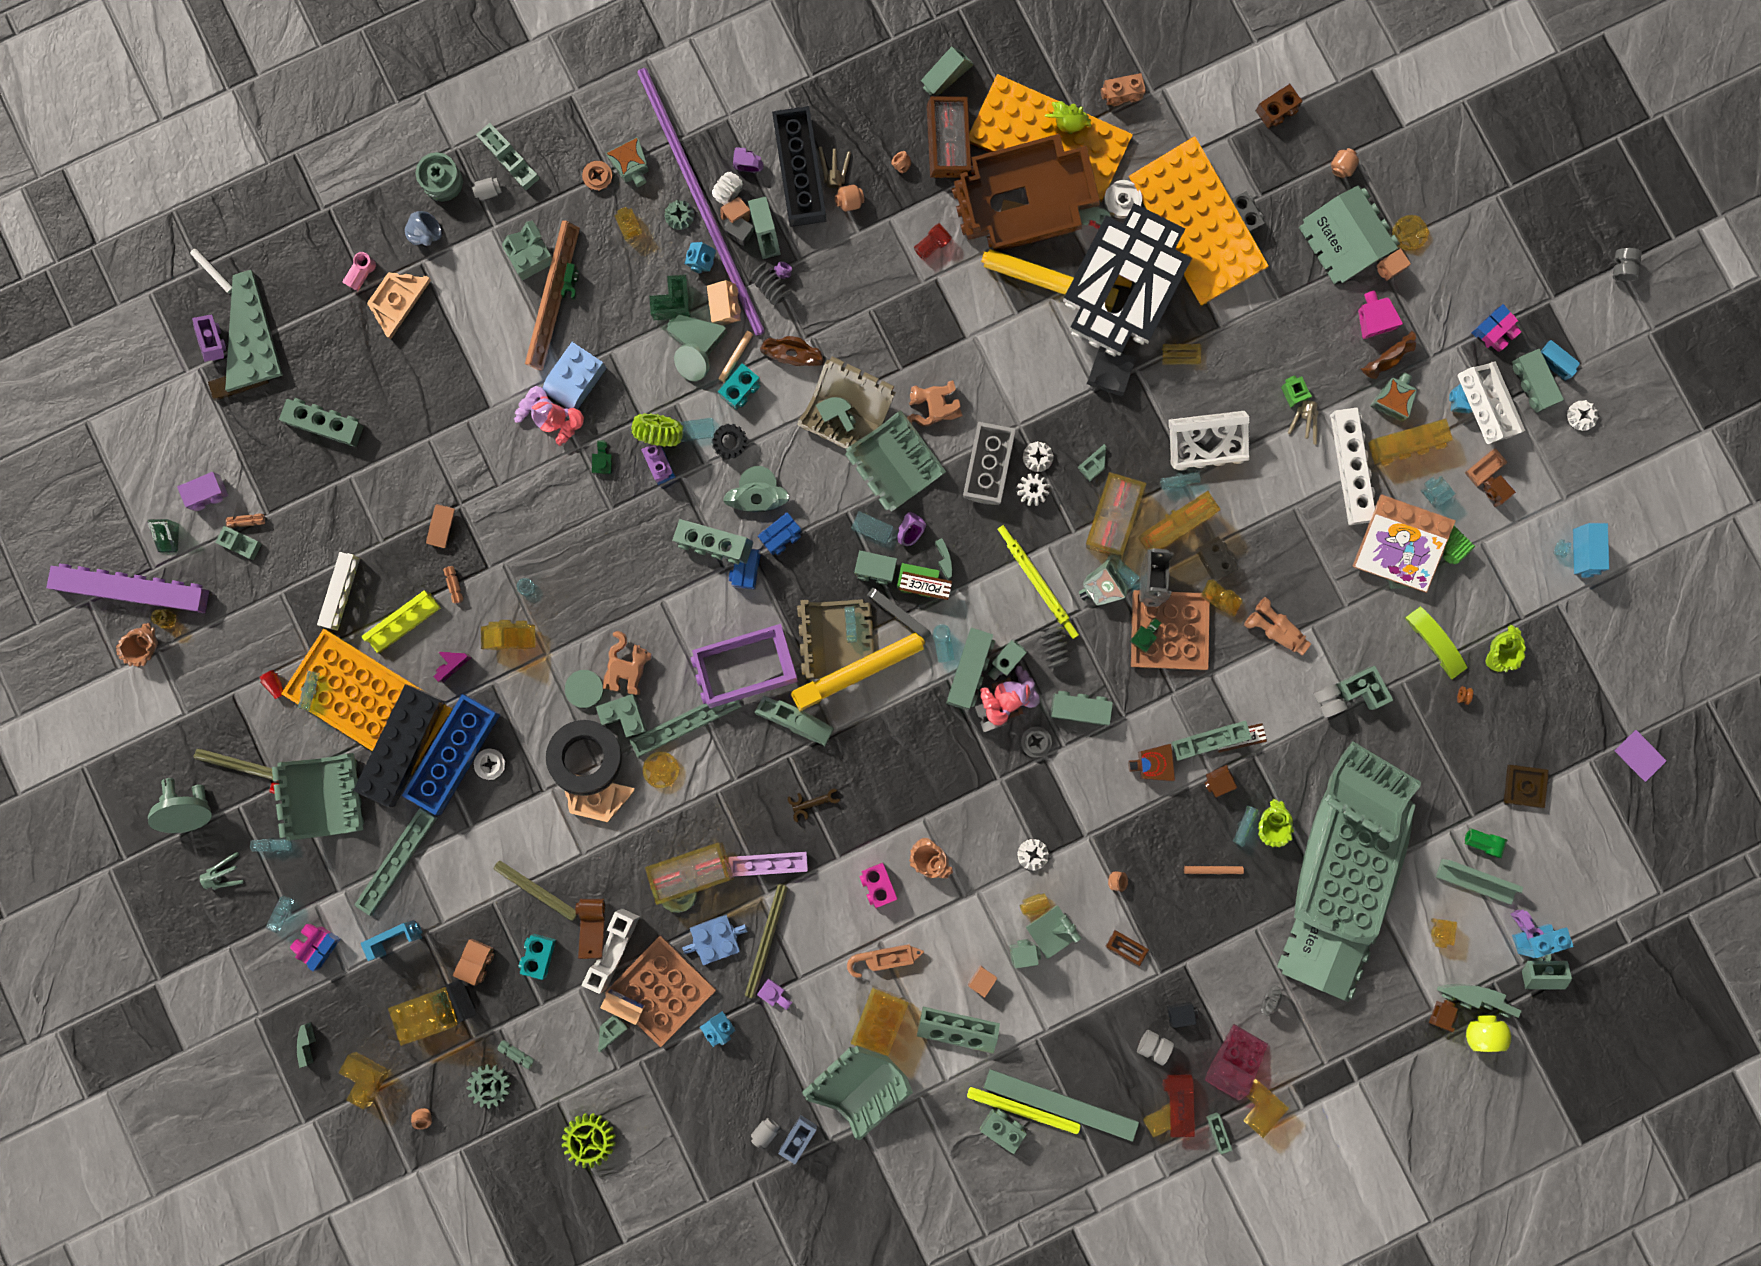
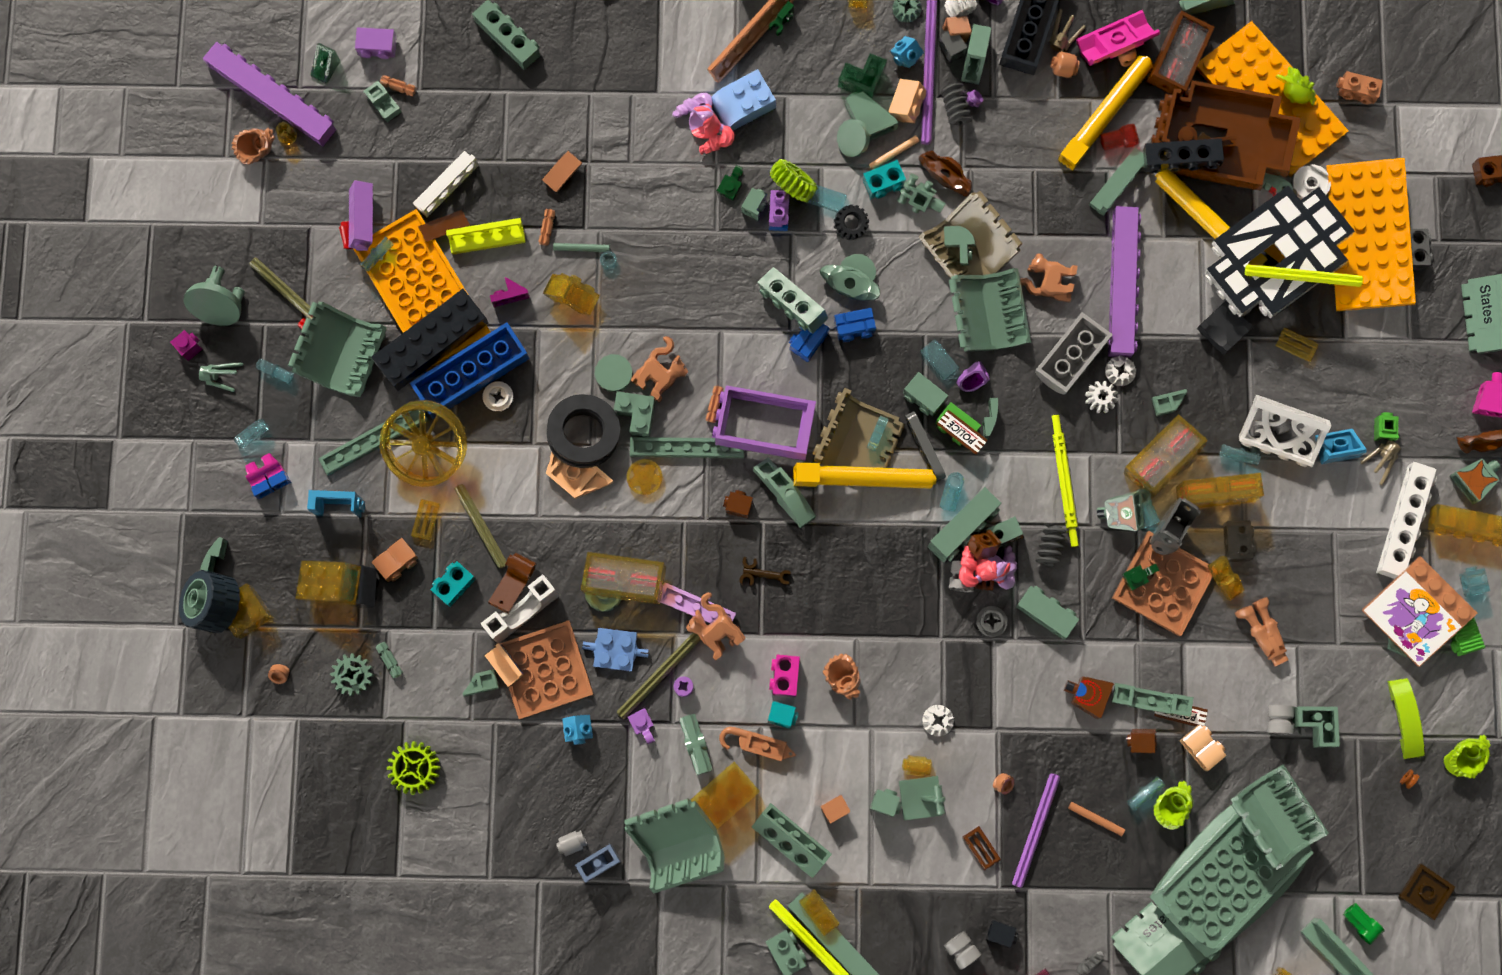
camera: 30 degrees right, 5 degrees down
(175, 863) = (187, 345): none -> magenta brick
(274, 662) = (360, 215): none -> medium lavender brick
(322, 1091) = (209, 601): none -> black wheel
(352, 636) = (439, 226): none -> reddish brown sticker
(443, 844) = (423, 443): none -> clear yellow wheel
(483, 914) = (432, 522): none -> clear yellow tile
(495, 587) = (580, 247): none -> sand green bar
(632, 467) = (754, 203): none -> sand green brick
(690, 671) = (714, 404): none -> nougat axle
(758, 751) = (738, 504): none -> reddish brown brick
(780, 385) = (921, 197): none -> sand green piece
(795, 943) = (680, 683): none -> medium lavender wheel
(797, 877) = (717, 630): none -> nougat animal
(830, 987) = (695, 744): none -> sand green piece
(883, 150) = (1116, 38): none -> dark pink piece
(894, 923) = (782, 715): none -> teal brick
(908, 224) = (1105, 112): none -> yellow brick
(951, 281) = (1118, 182): none -> sand green fence
(994, 211) = (1189, 133): none -> reddish brown door
(996, 680) = (984, 545): none -> reddish brown brick
(1000, 373) = (1123, 281): none -> medium lavender brick
(1014, 1080) = (819, 912): none -> clear yellow slope
(1020, 213) = (1211, 147): none -> black brick
(1159, 292) = (1303, 275): none -> neon yellow axle
(1166, 907) = (1036, 830): none -> medium lavender axle
(1264, 427) = (1341, 446): none -> dark azure slope
(1275, 760) = (1203, 747): none -> light nougat brick

